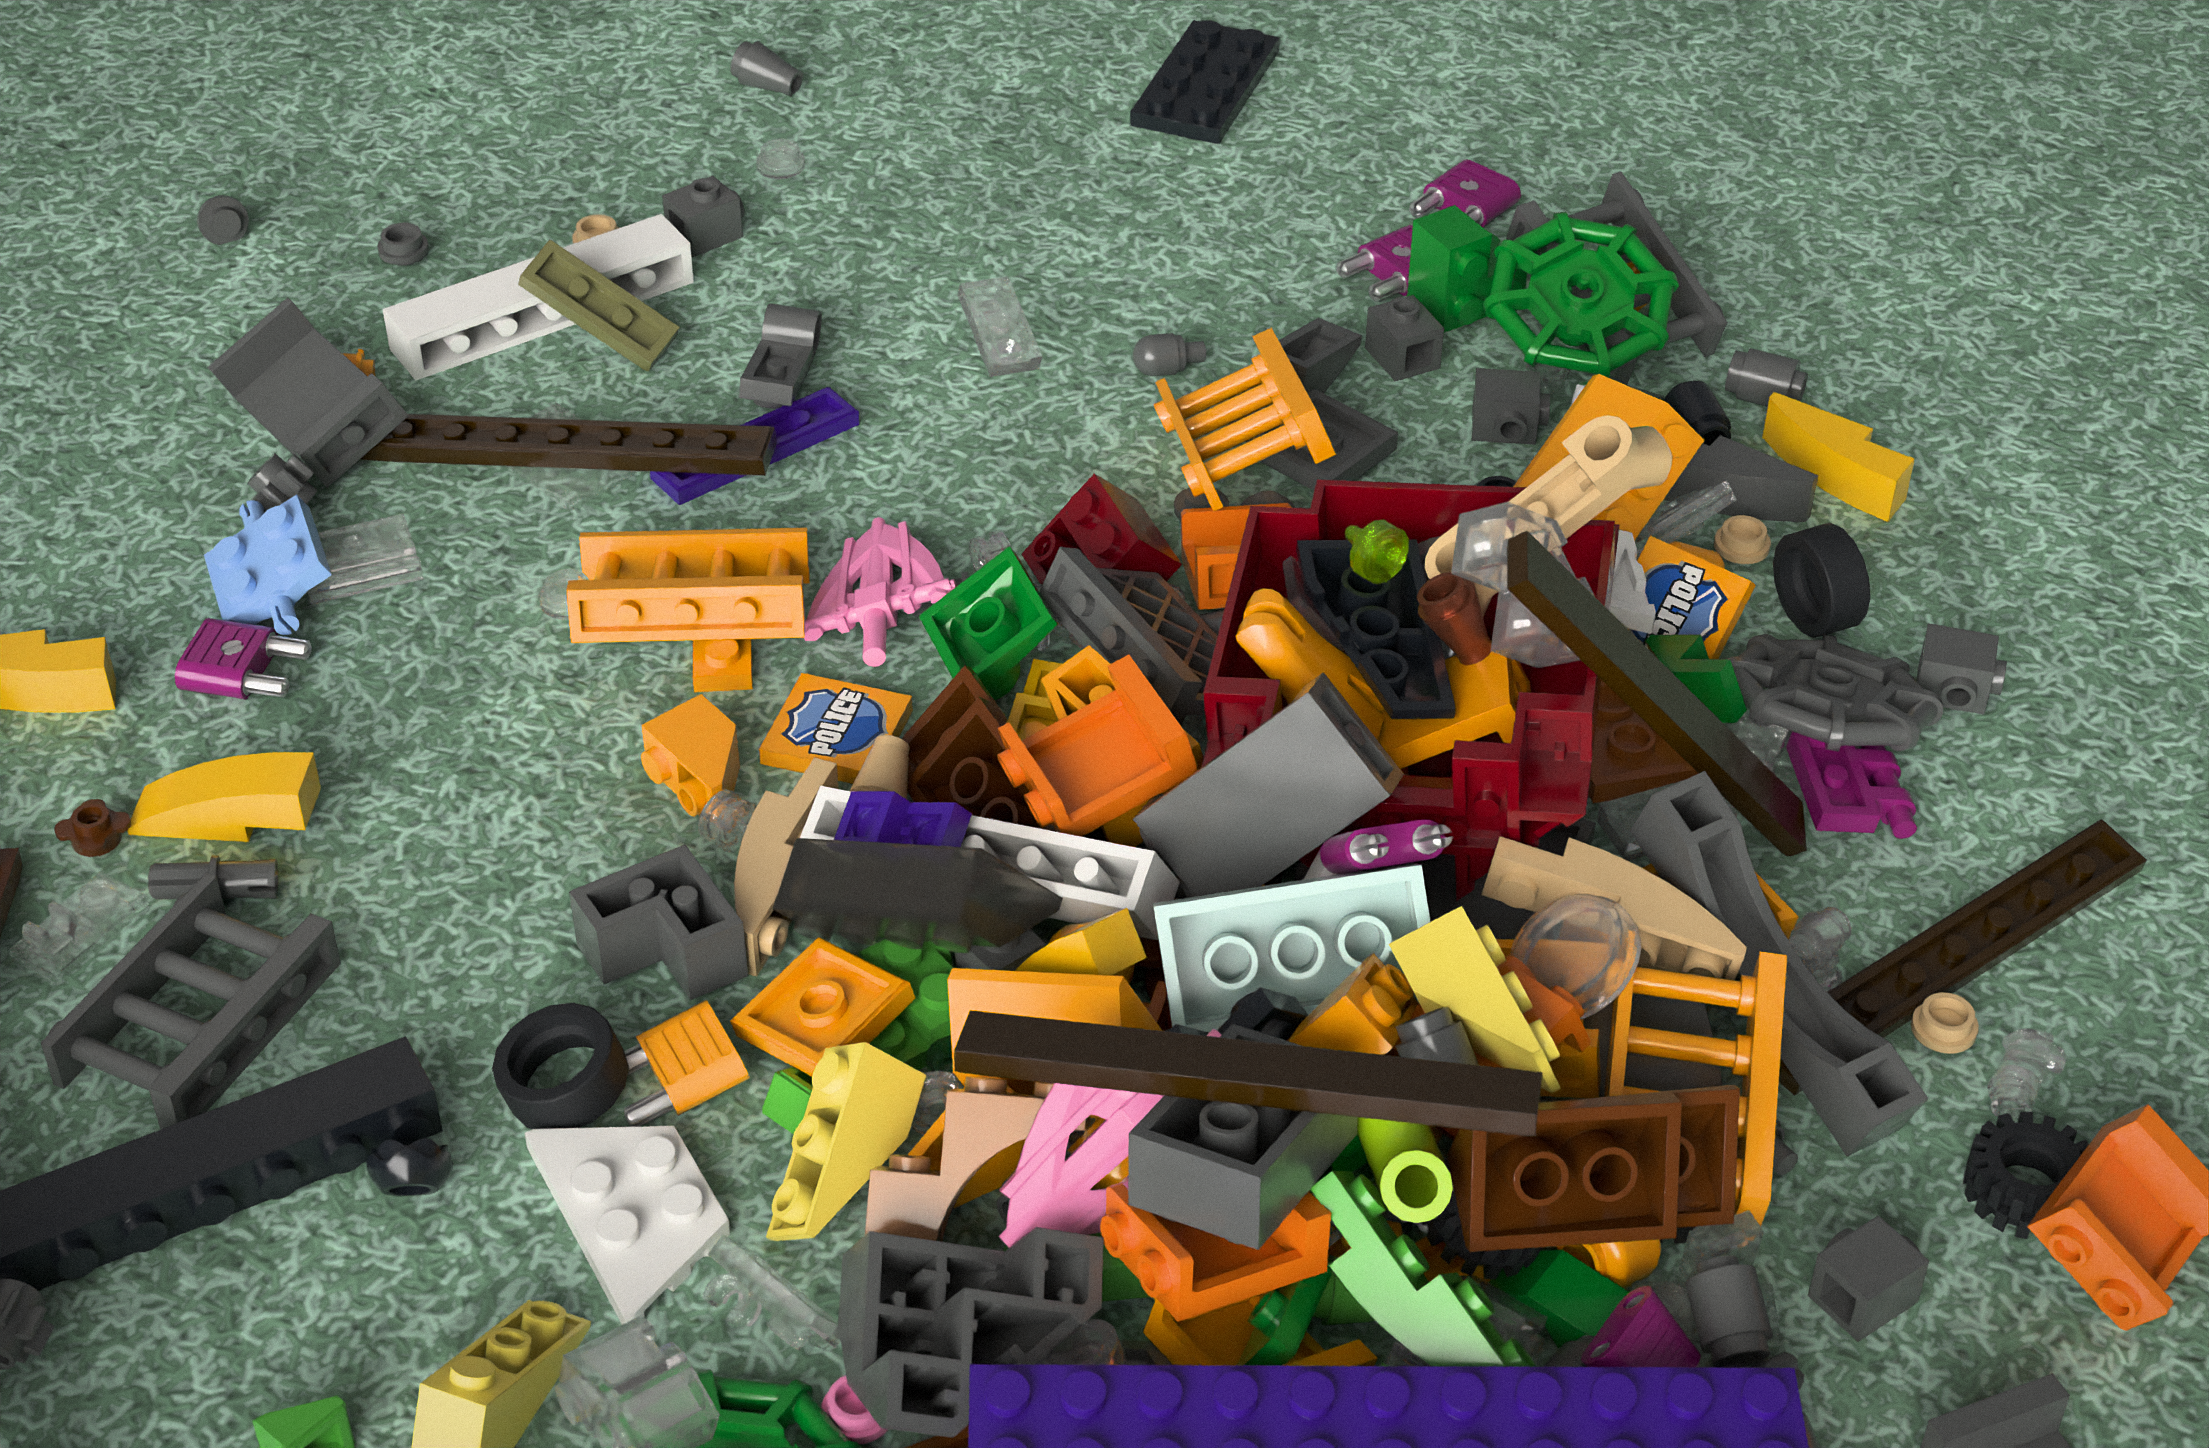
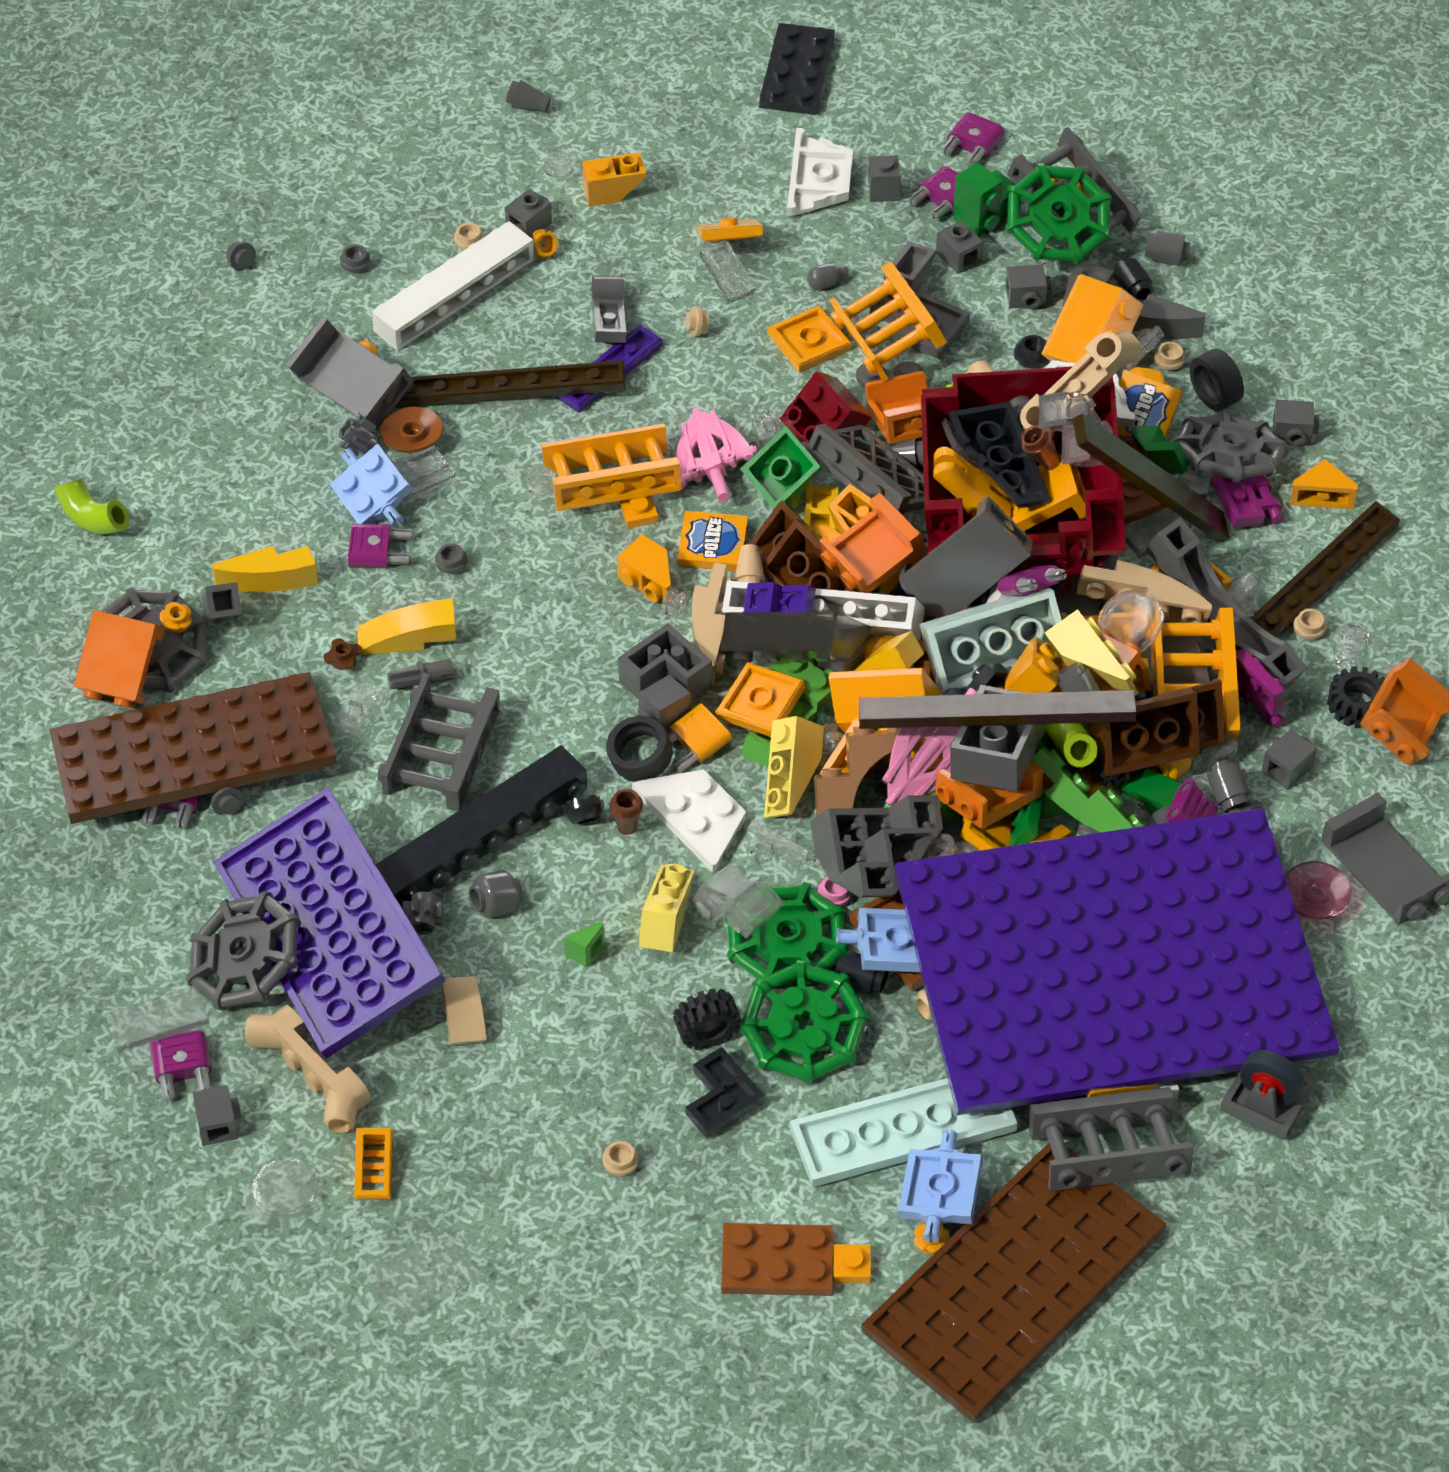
camera: 10 degrees left, 10 degrees up
(166, 1307) = (495, 894): none -> dark grey head
(358, 696) = (451, 558): none -> dark grey plate
(377, 489) = (411, 429): none -> dark orange dish
(484, 1180) = (626, 810): none -> copper cone
(598, 305) = (495, 291): olive plate -> none
(635, 988) = (665, 701): none -> dark grey brick
(725, 258) = (550, 240): none -> light orange plate
(853, 180) = (611, 177): none -> light orange slope
(925, 392) = (697, 321): none -> tan plate
(1021, 266) = (729, 229): none -> light orange plate
(1112, 440) = (809, 338): none -> light orange tile
(1195, 216) = (818, 174): none -> white wing
(1301, 229) = (884, 178): none -> dark grey brick
(1377, 550) = (994, 414): clear neon green tile -> none
(1825, 1126) = (1260, 688): none -> magenta plate
(1840, 455) = (1213, 294): yellow slope -> none
(2002, 784) = (1324, 487): none -> light orange slope

